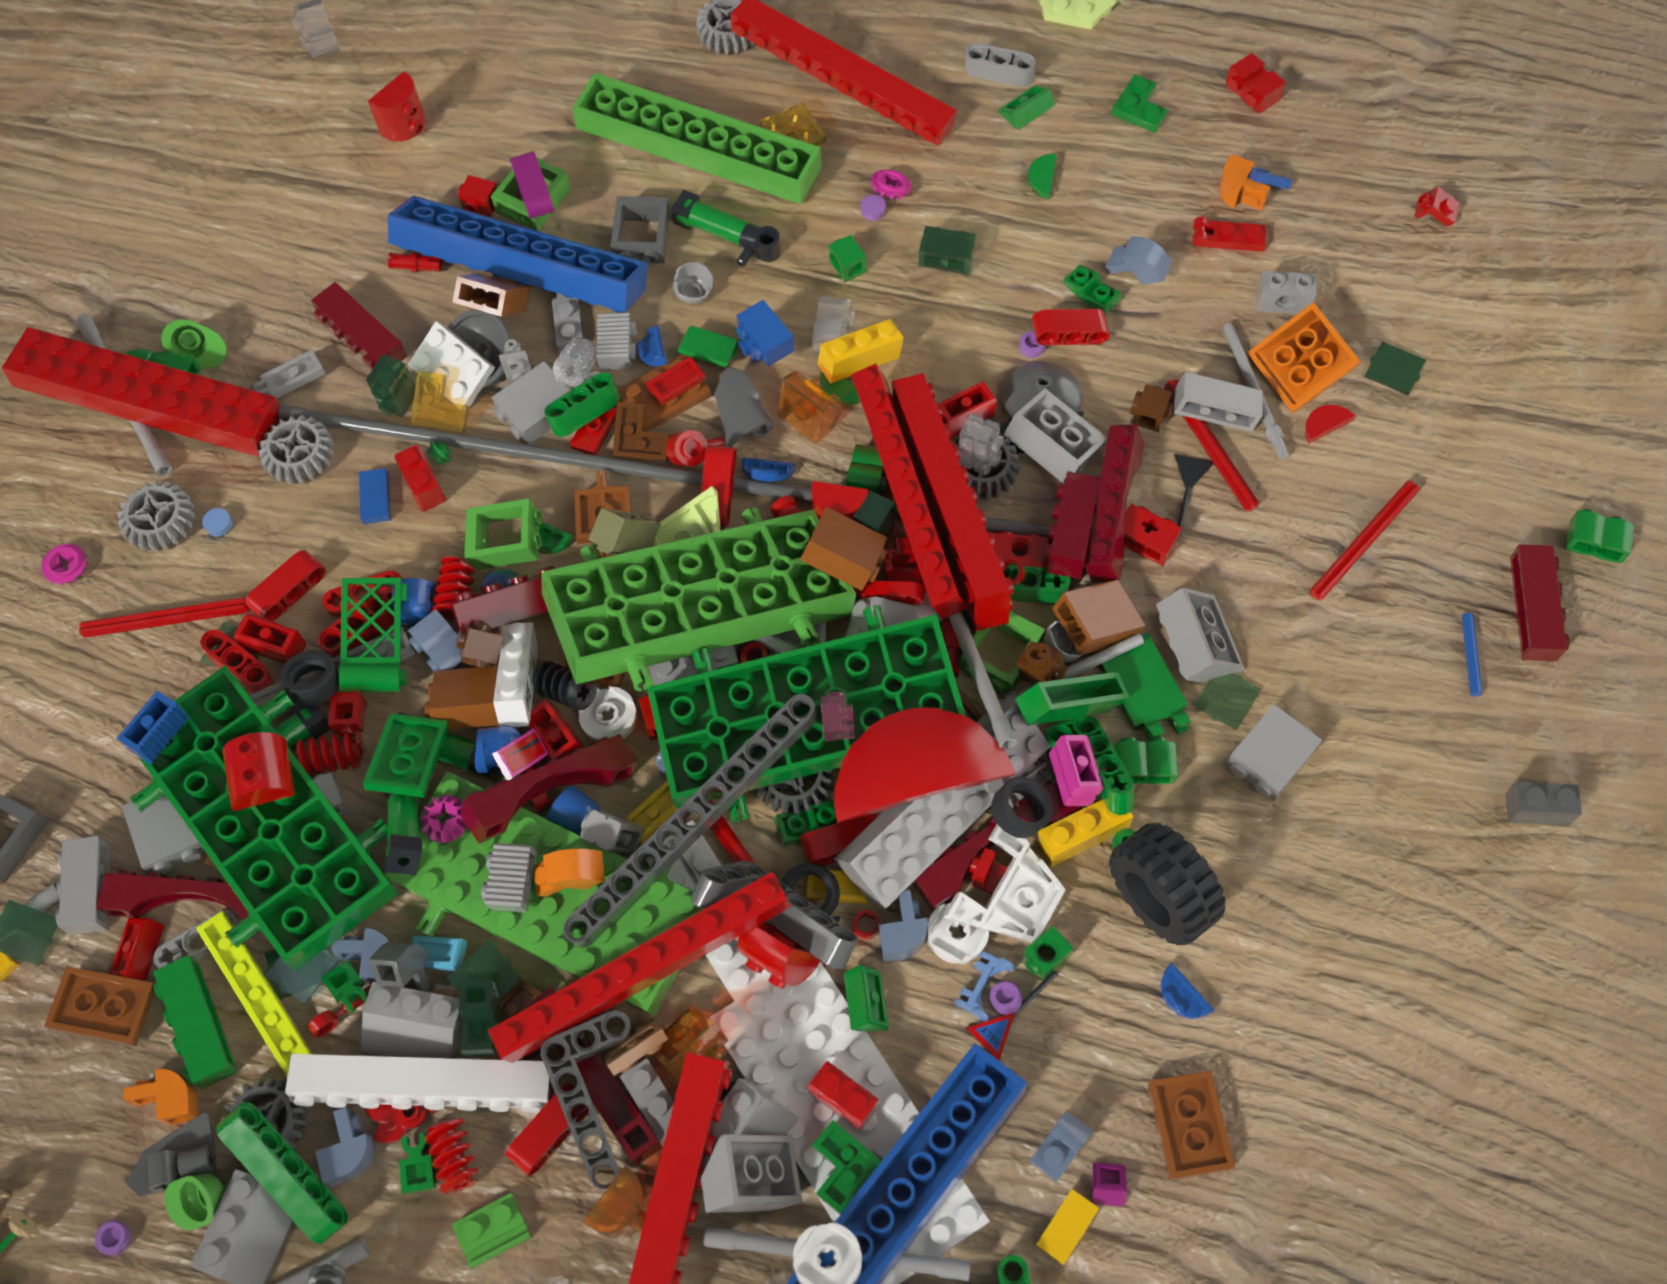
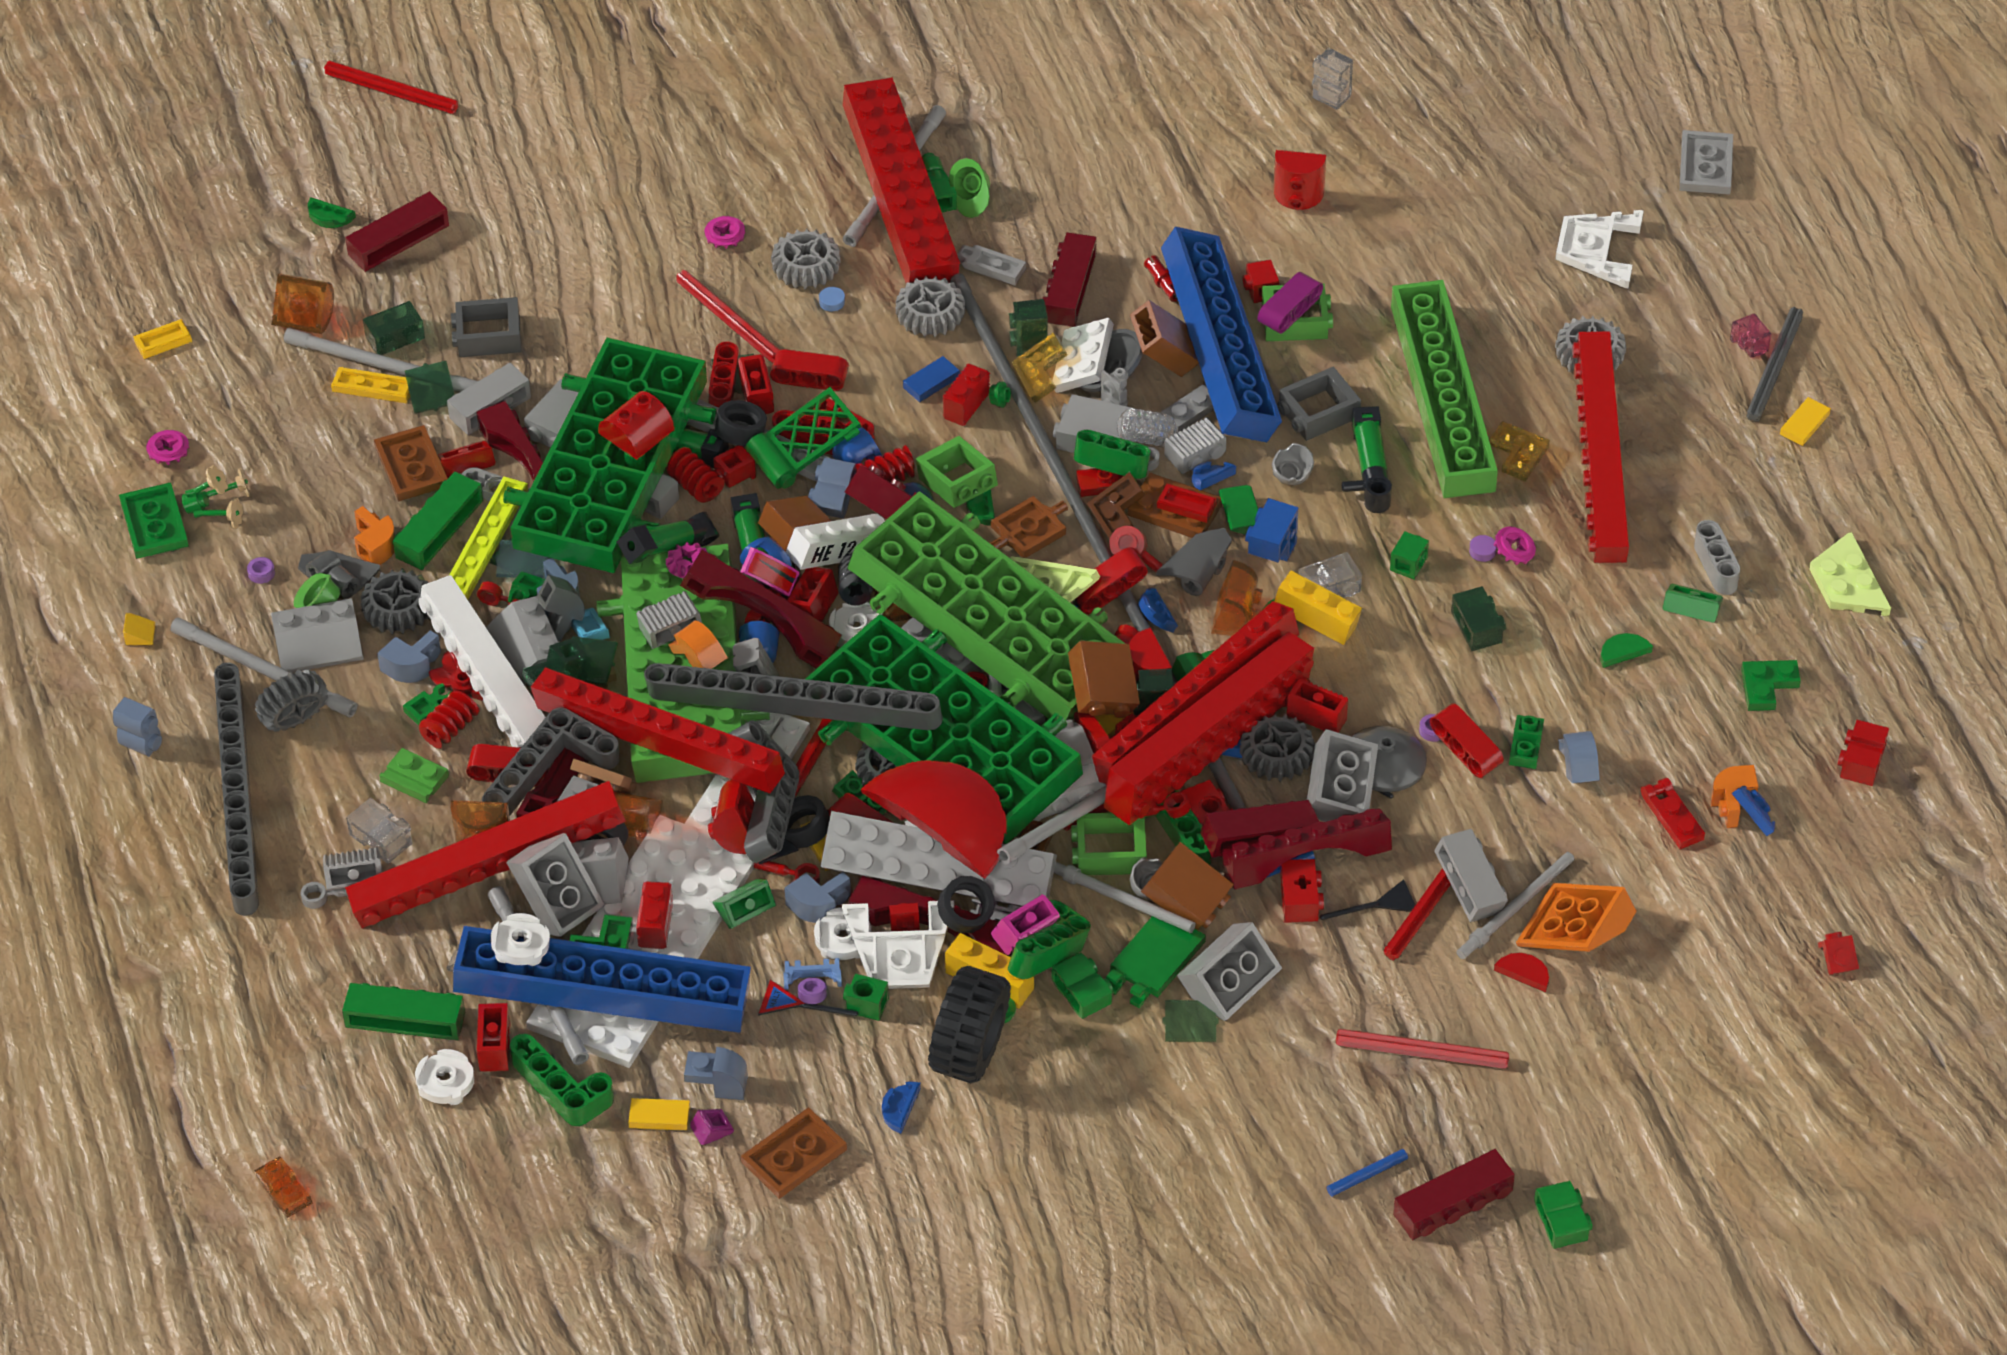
camera: 55 degrees right, 15 degrees down
(153, 727) = (621, 345): blue brick -> none
(282, 1173) = (367, 624): green beam -> none
(406, 755) = (720, 510): green plate -> none
(479, 645) = (844, 502): reddish brown brick -> none
(623, 531) = (1007, 531): olive brick -> none
(836, 717) = (940, 734): clear pink brick -> none
(980, 444) = (1274, 717): clear brick -> none
(1041, 664) = (1107, 865): reddish brown brick -> none
(1072, 698) = (1089, 894): green brick -> none
(1151, 407) = (1427, 833): reddish brown brick -> none
(1273, 752) = (1157, 1067): light grey brick -> none
(1285, 292) = (1634, 871): light grey brick -> none
(1395, 368) = (1628, 999): clear green piece -> none
(1543, 803) = (1253, 1271): dark grey brick -> none

